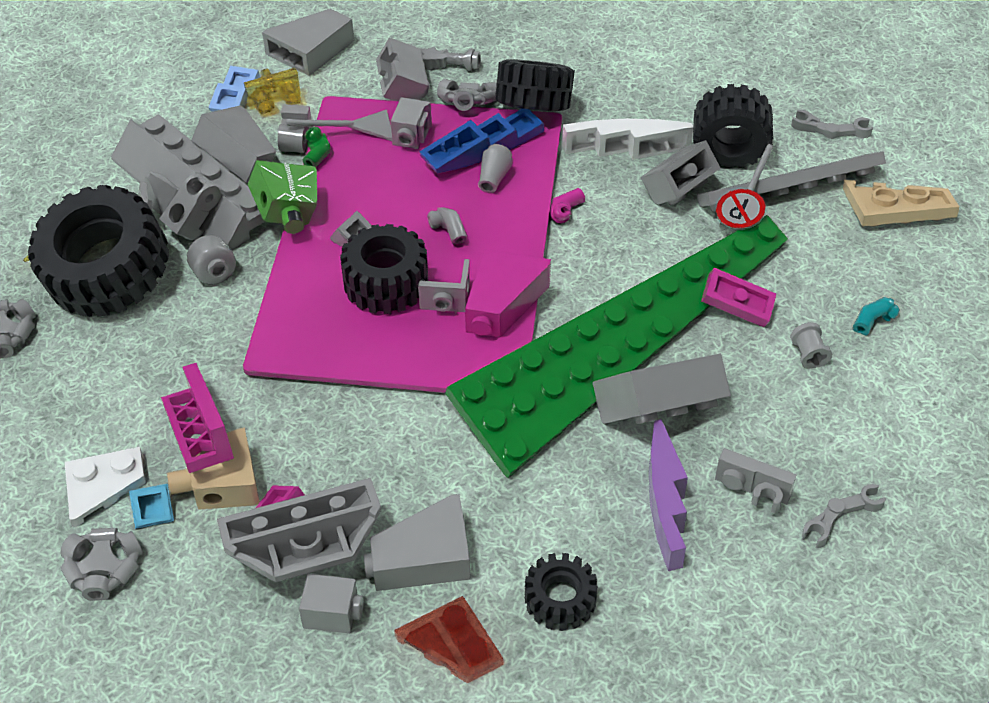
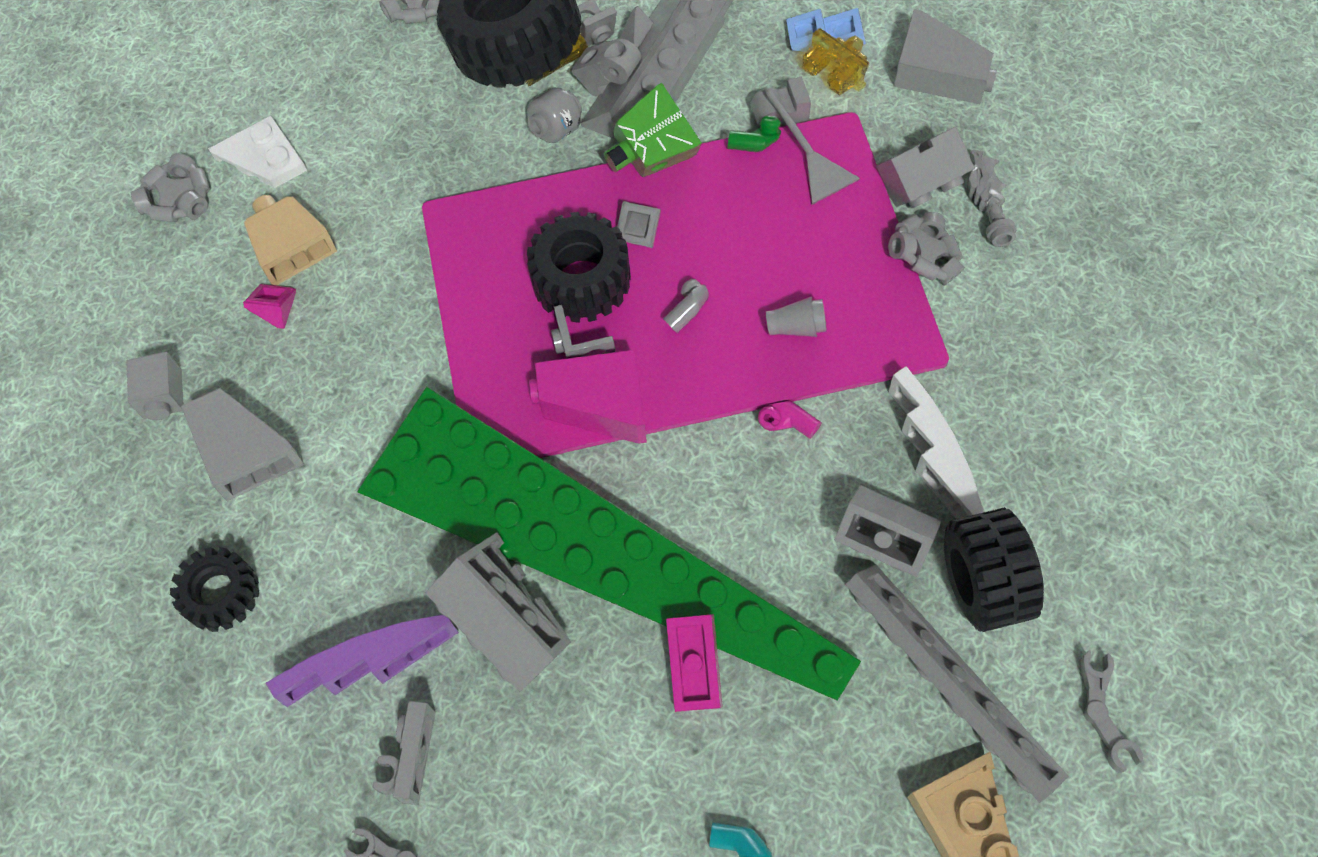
camera: 75 degrees right, 15 degrees up
(151, 506) = (240, 198): medium azure slope -> none
(205, 422) = (321, 191): dark pink fence -> none
(233, 140) = (726, 60): light grey slope -> none
(303, 531) = (206, 327): light grey wedge -> none
(411, 122) = (832, 206): light grey window -> none
(453, 639) = (145, 510): clear red wing -> none
(468, 142) = (844, 293): blue slope -> none
(534, 85) = (958, 309): black tyre -> none
(744, 207) = (851, 623): piece -> none
(808, 340) = (650, 773): light grey bush -> none

